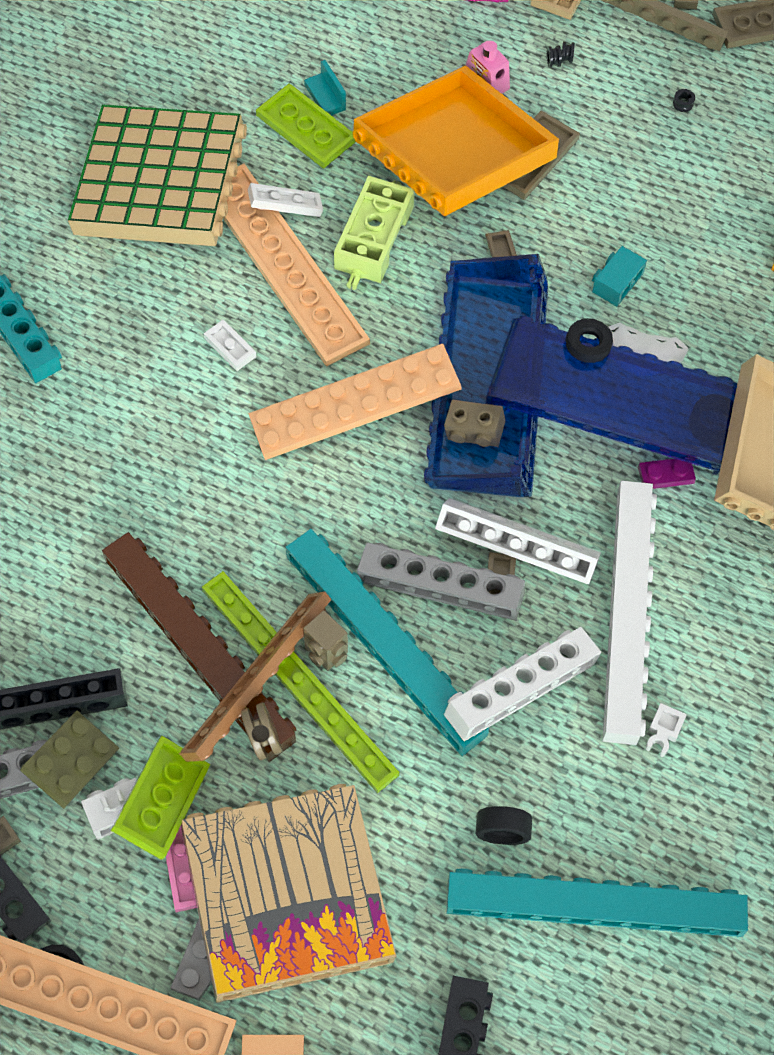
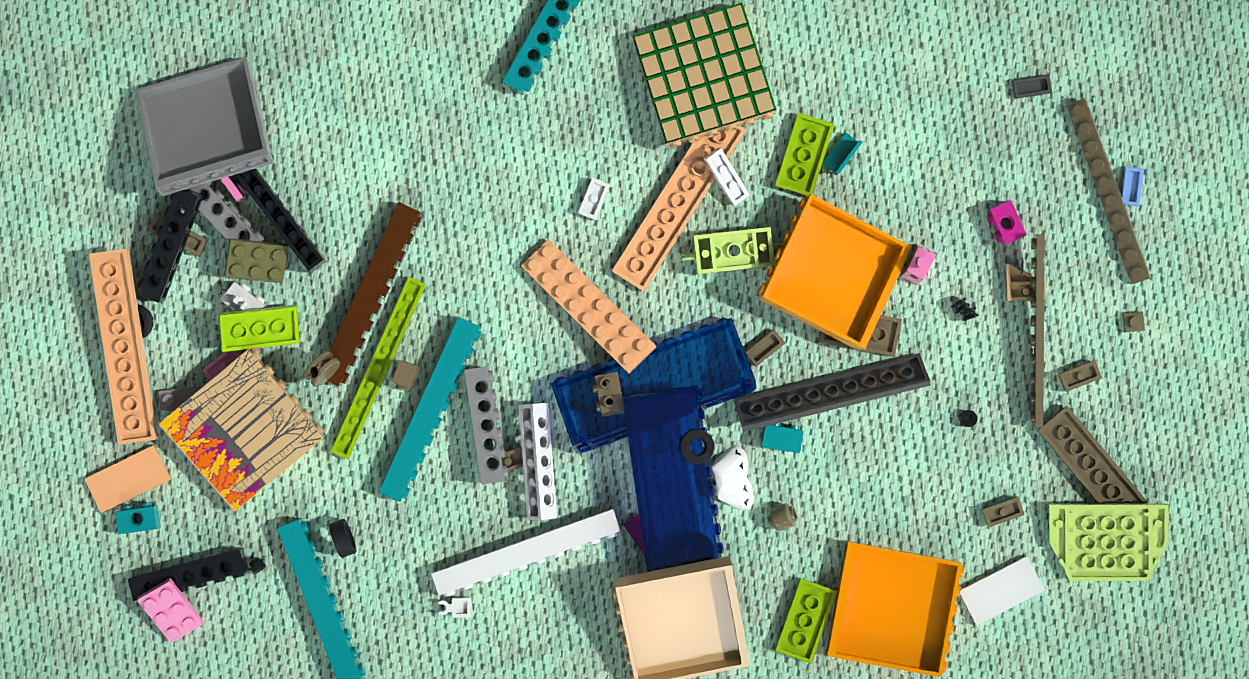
camera: 70 degrees right, 25 degrees up
(252, 681) = (359, 345): medium nougat plate -> none
(469, 720) = (478, 536): white brick -> none
(487, 969) = (257, 565): none -> black plate
(589, 207) = (831, 392): none -> dark grey plate
(714, 314) = (782, 517): none -> dark tan head

